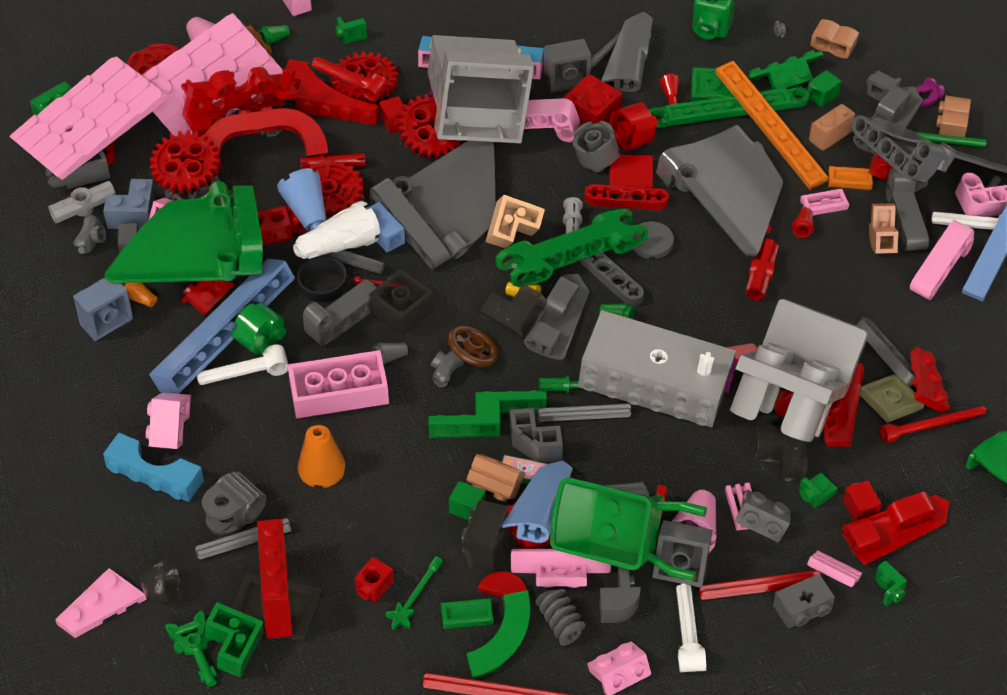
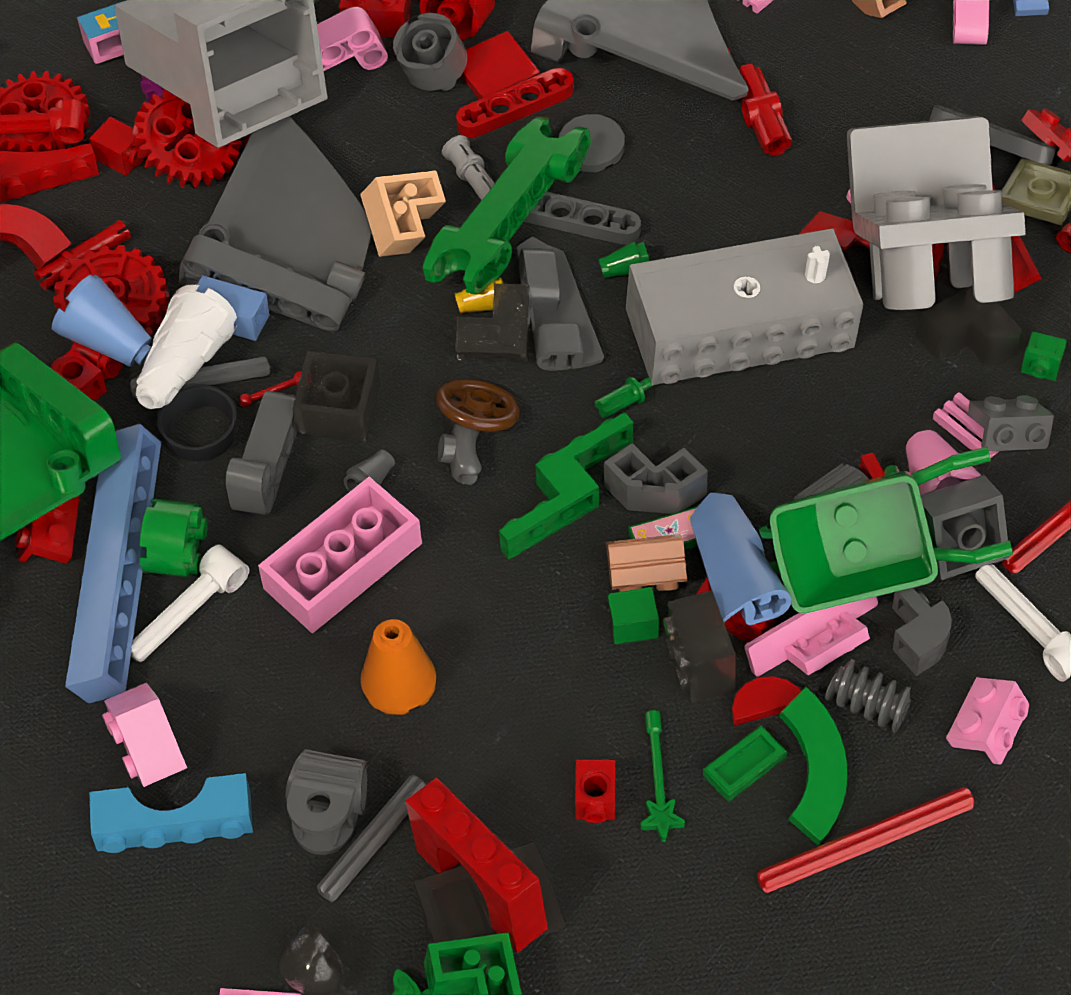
camera: 30 degrees left, 5 degrees up
(584, 412) = (687, 413): dark grey axle -> none
(803, 223) = (766, 25): red cone -> none

